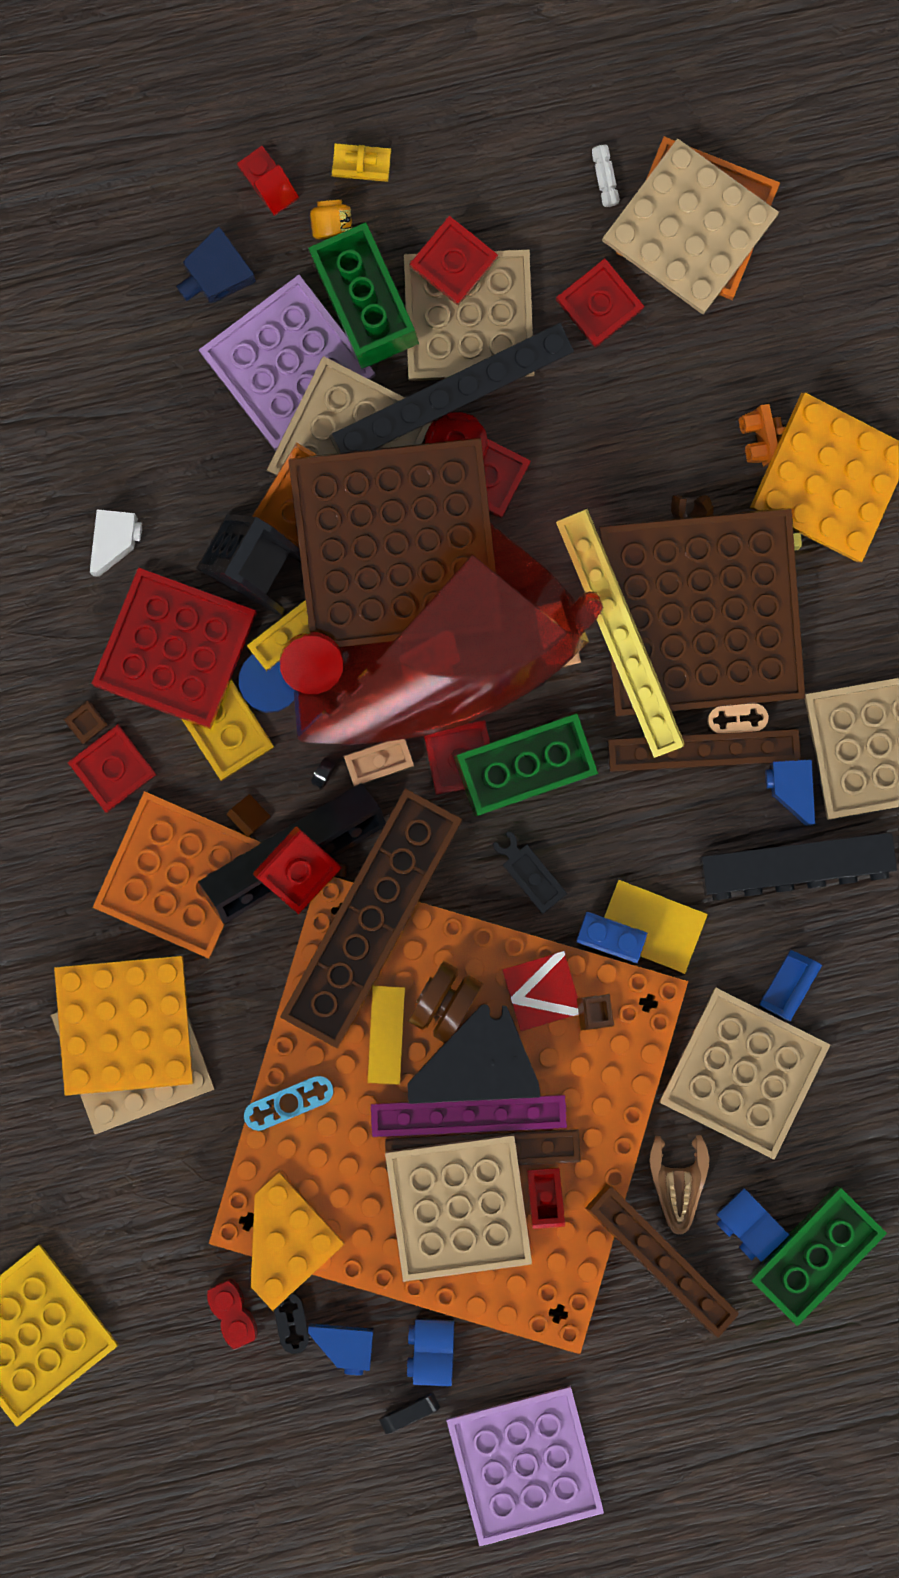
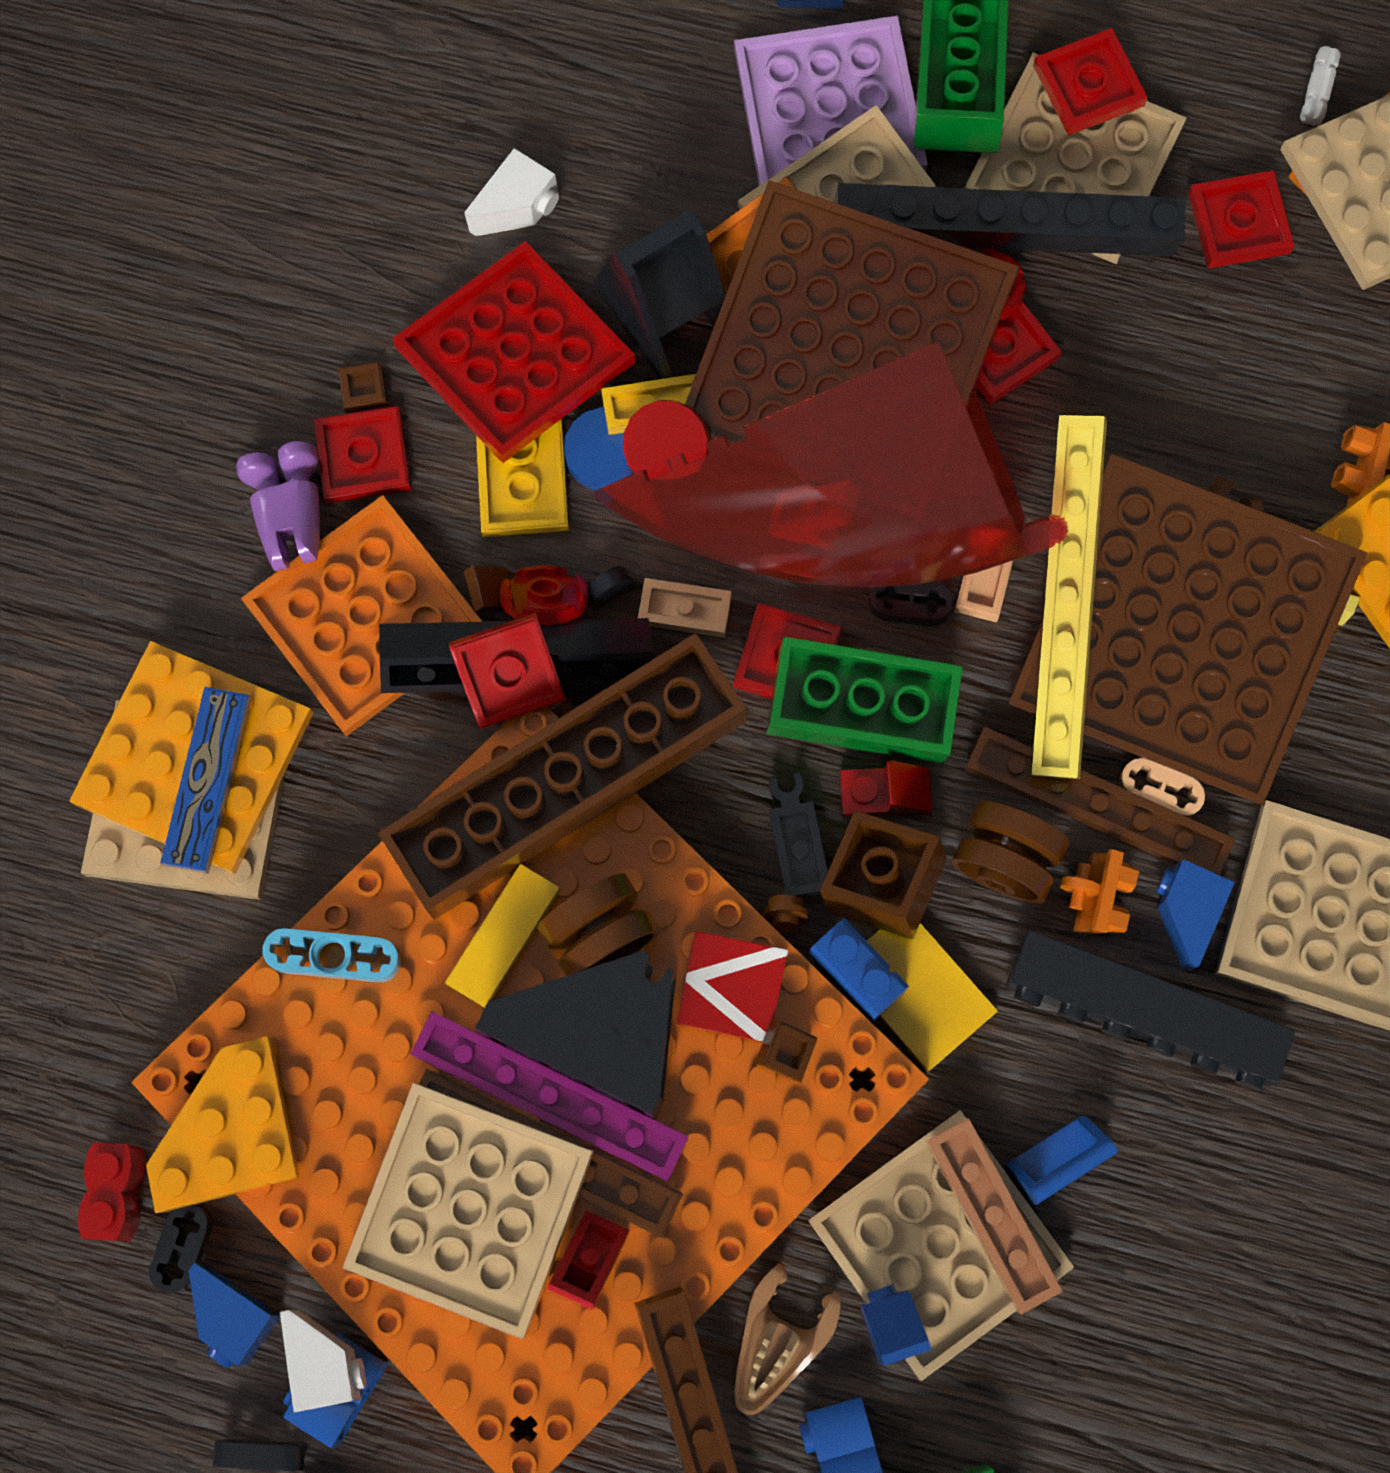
camera: 30 degrees right, 10 degrees down
(87, 836) = (286, 508): none -> medium lavender piece
(146, 1037) = (206, 780): none -> blue tile
(287, 803) = (546, 592): none -> red tile
(419, 1343) = (319, 1364): none -> white slope
(547, 923) = (785, 912): none -> dark orange plate
(568, 812) = (886, 791): none -> red slope
(595, 869) = (883, 874): none -> reddish brown brick
(666, 817) = (1010, 852): none -> reddish brown wheel
(729, 807) = (1095, 892): none -> orange hips
(742, 1137) = (894, 1325): none -> blue slope
(767, 1041) = (994, 1216): none -> nougat plate

